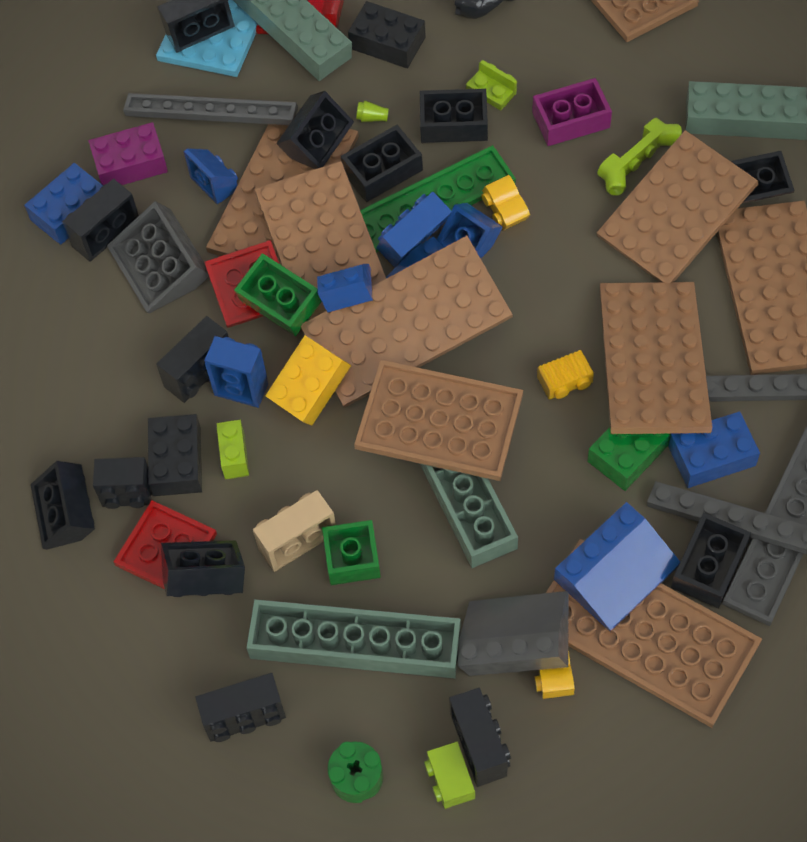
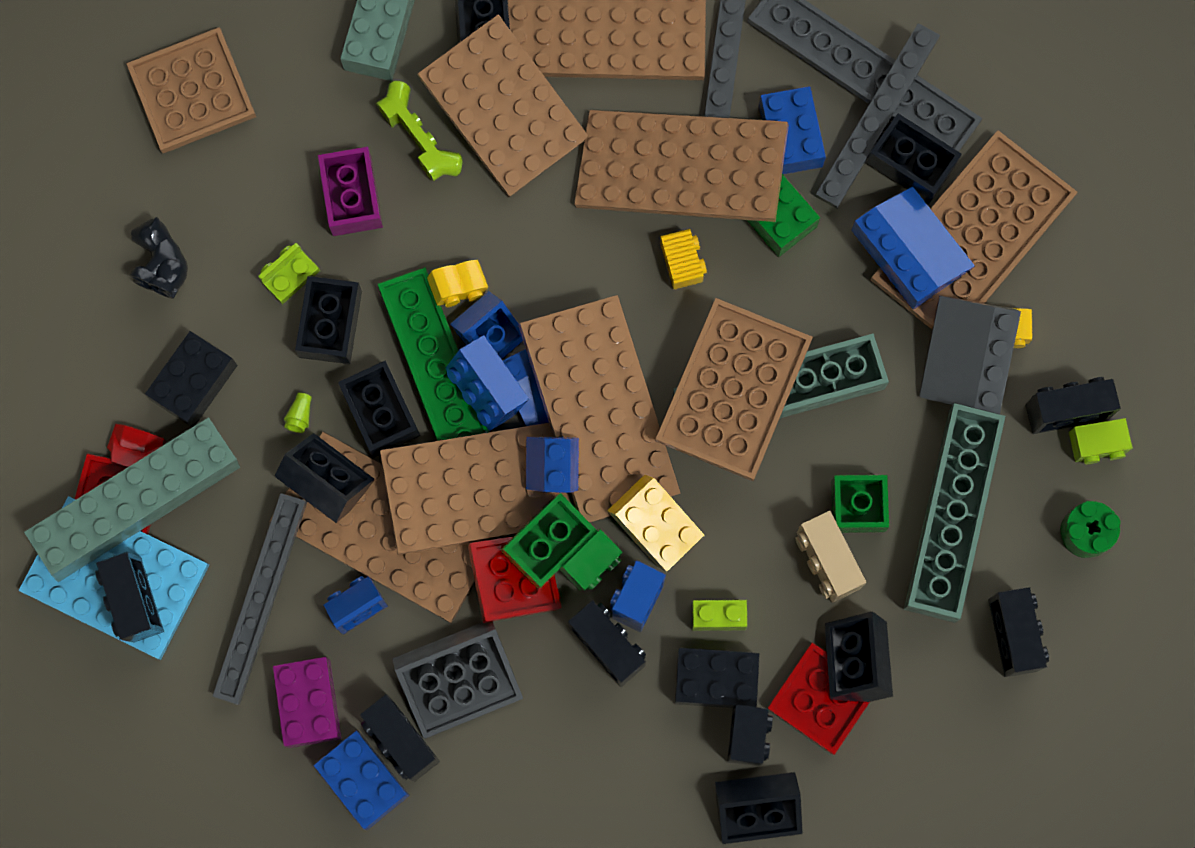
camera: 85 degrees left, 15 degrees up
(268, 333) = (591, 561): none -> green brick

